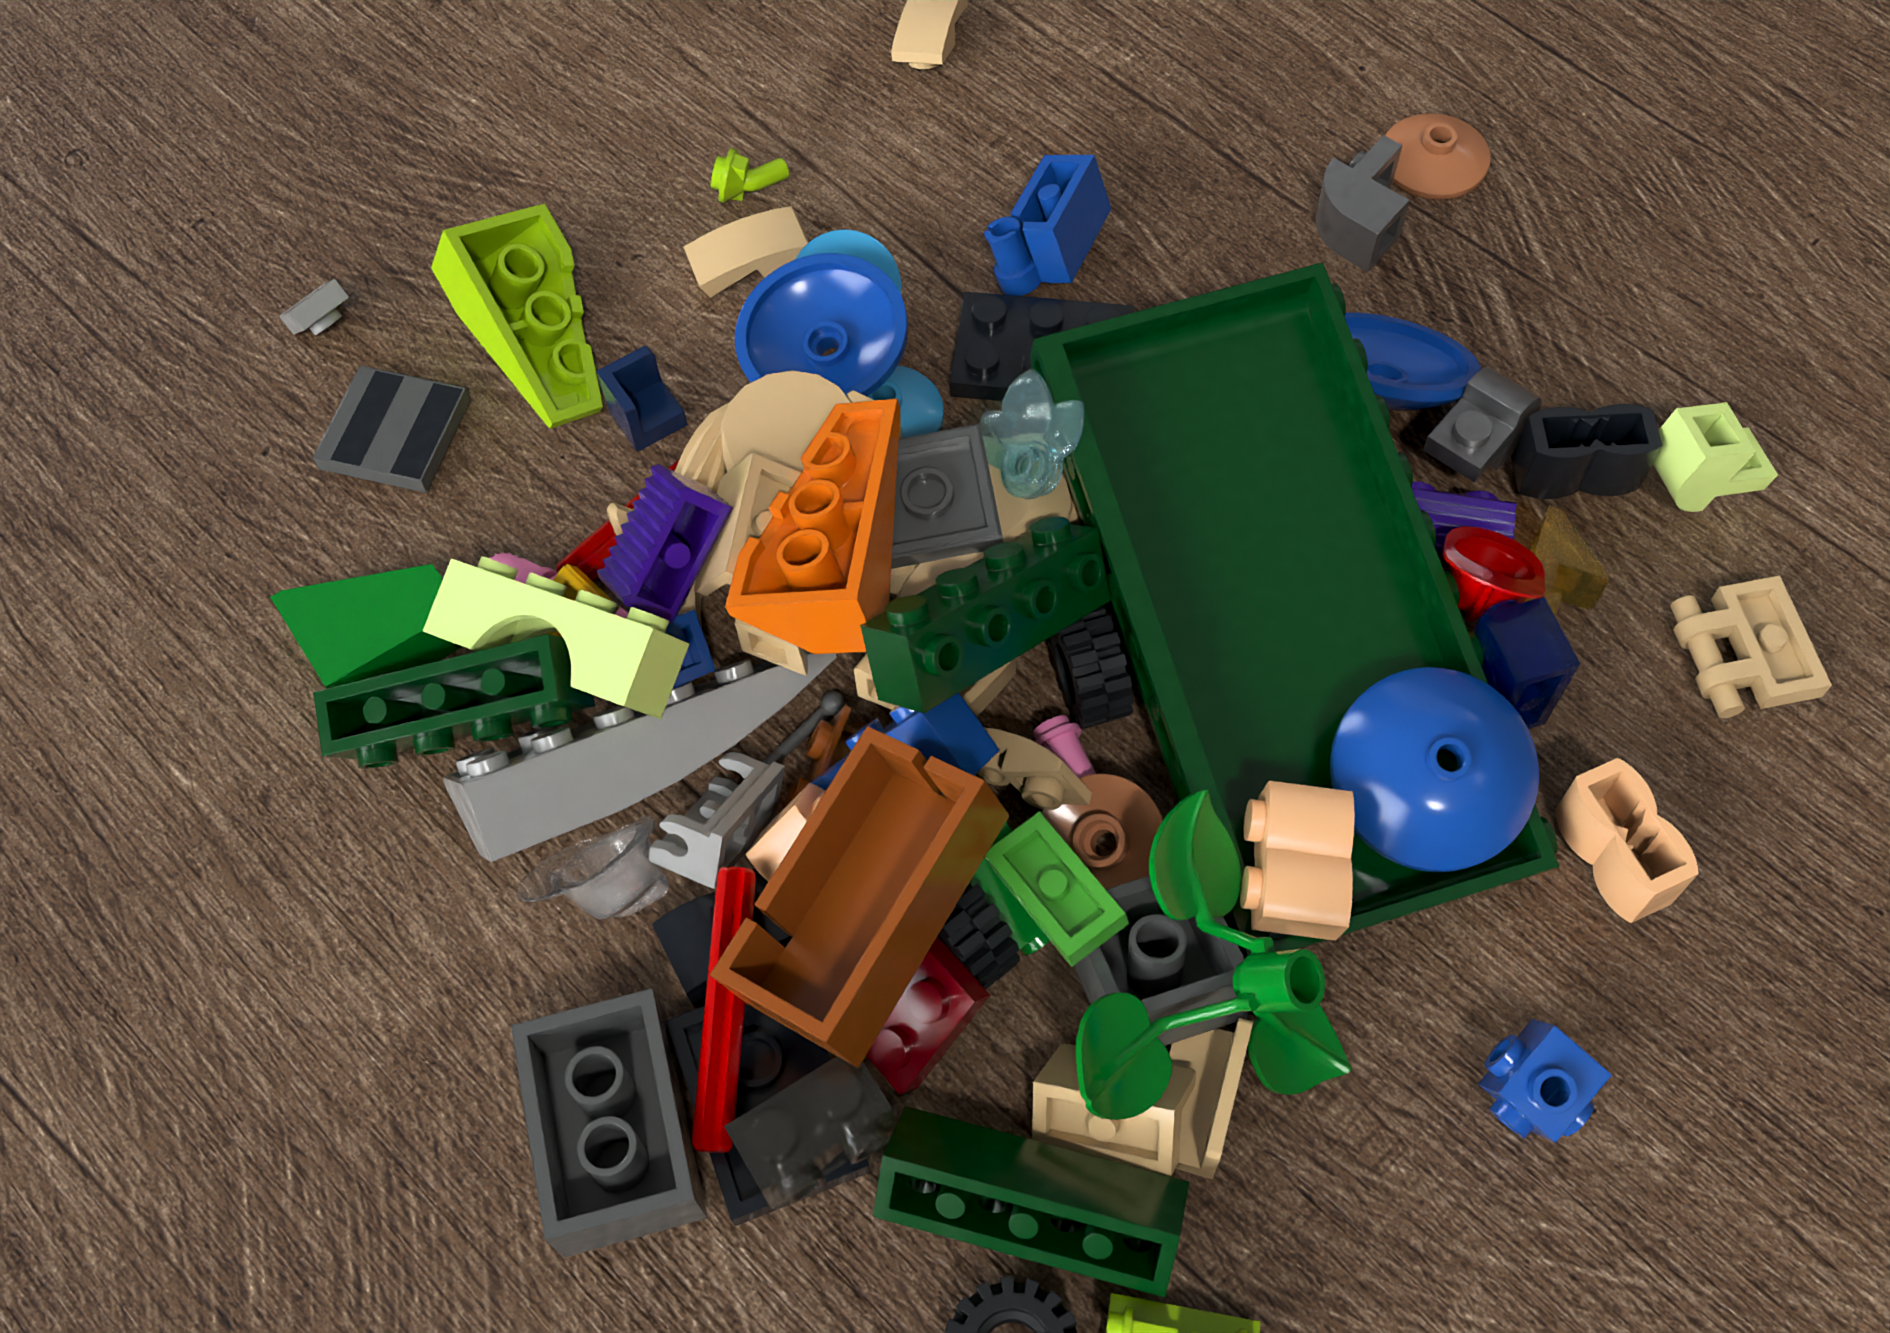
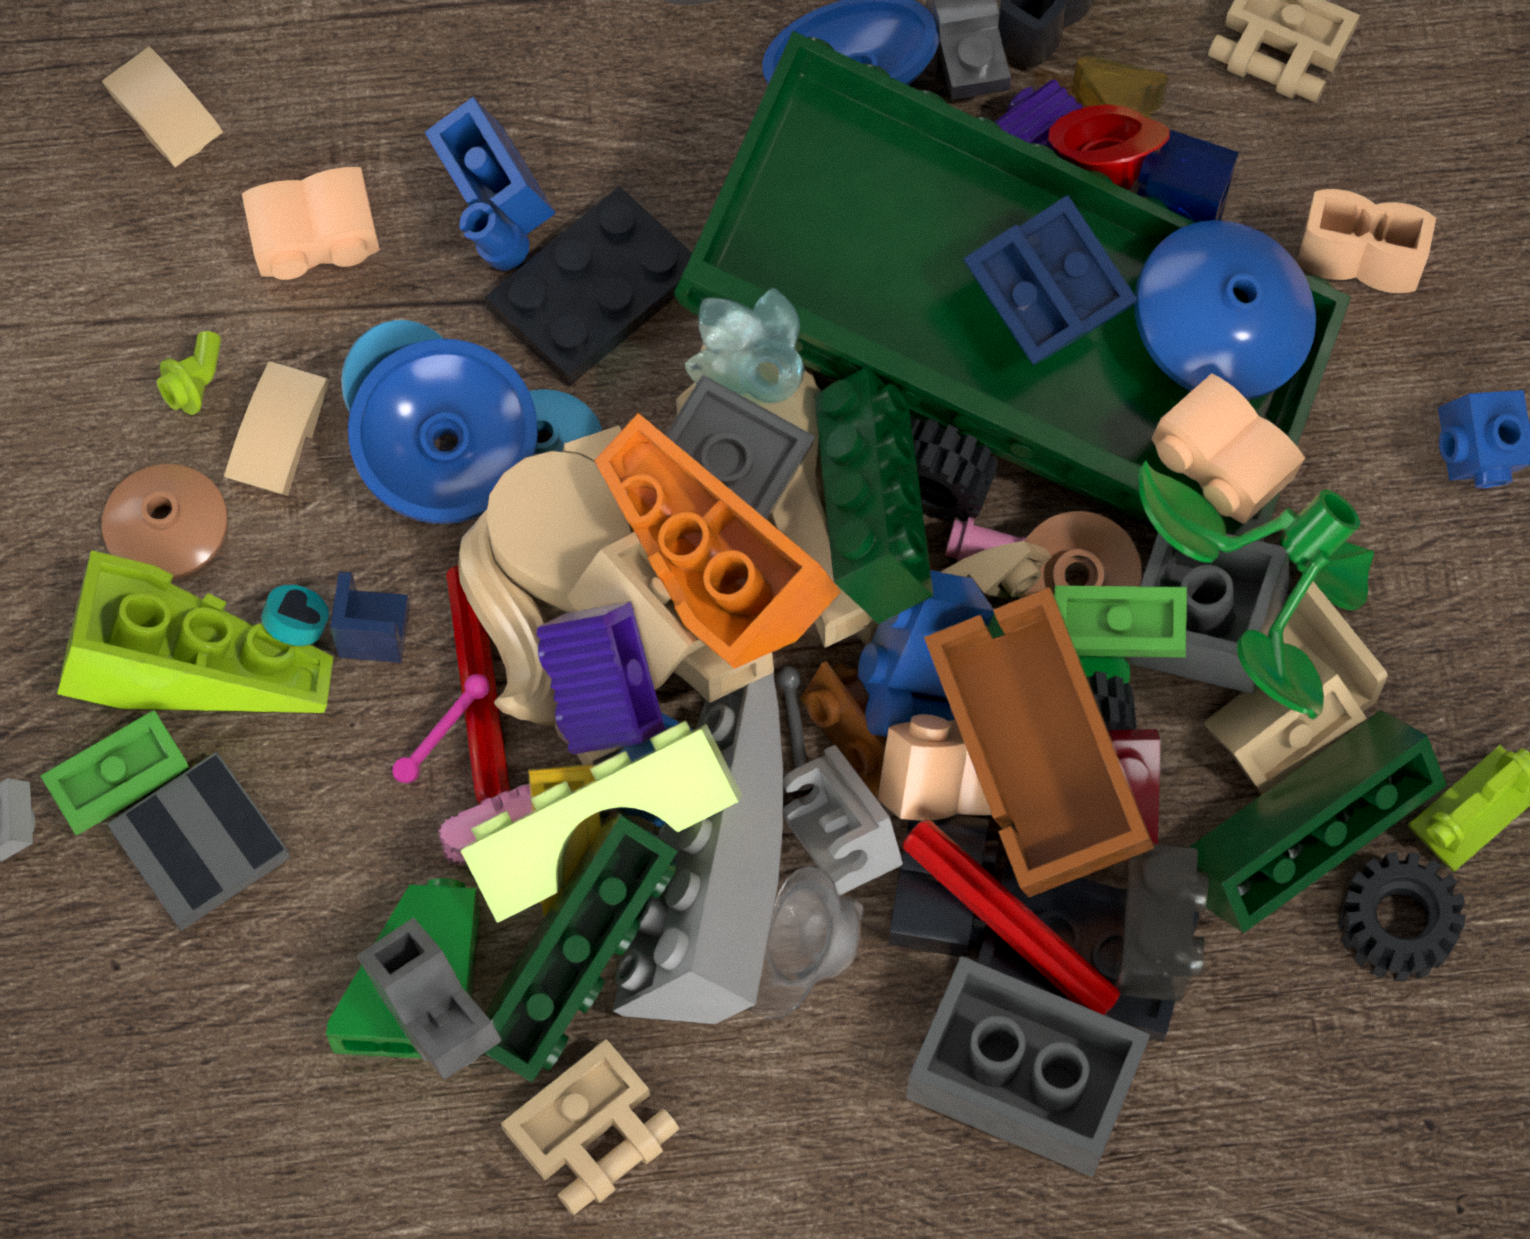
camera: 55 degrees left, 5 degrees up
(324, 630) = (428, 999): none -> flat silver brick
(342, 813) = (578, 1110): none -> tan plate
(402, 343) = (115, 772): none -> bright green plate
(551, 512) = (408, 769): none -> dark pink hinge
(603, 348) = (295, 615): none -> teal tile
(627, 245) = (177, 542): none -> nougat dish
(922, 156) = (310, 222): none -> light nougat brick
(1309, 606) = (1050, 280): none -> dark blue slope

